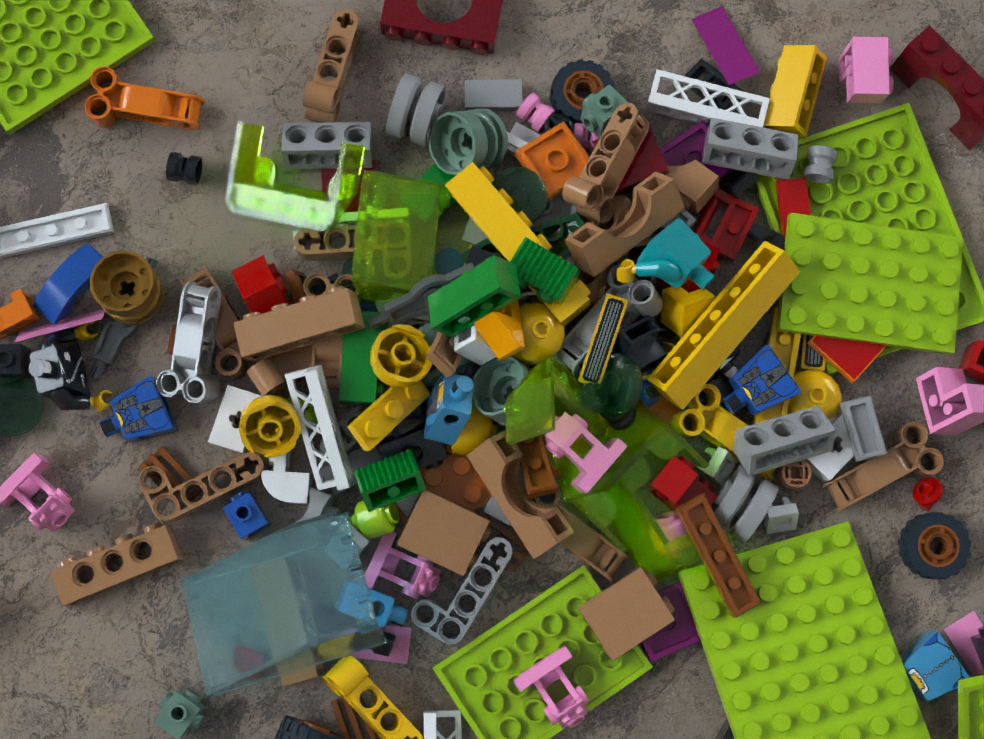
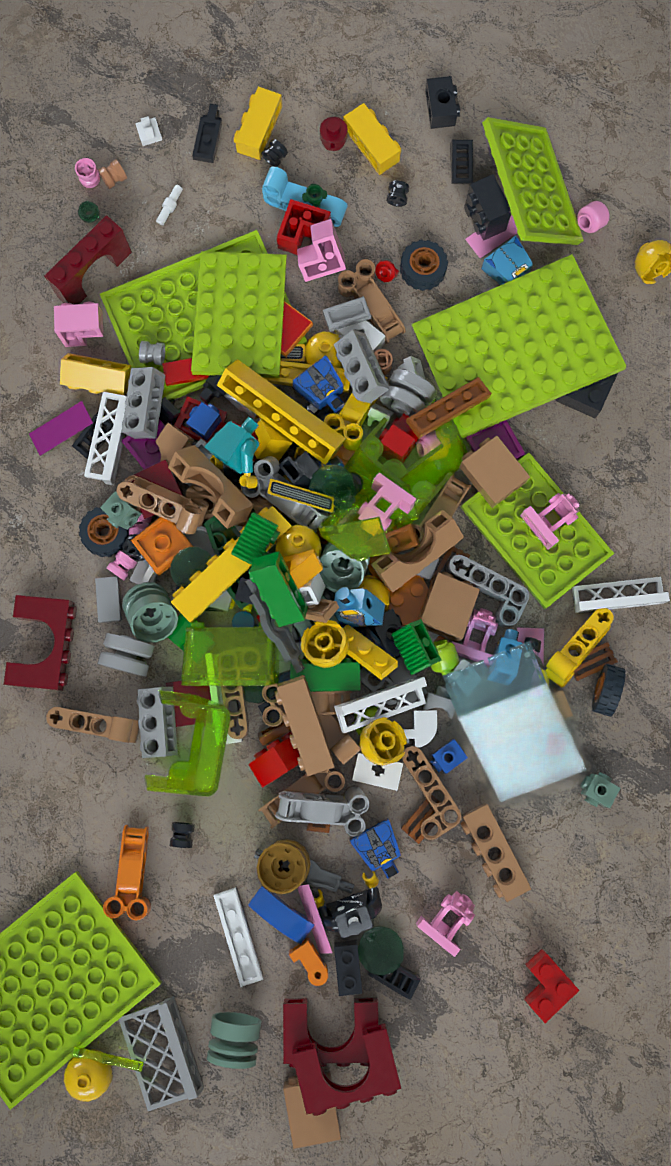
camera: 90 degrees left, 0 degrees up
(722, 226) = (204, 420): none -> blue brick

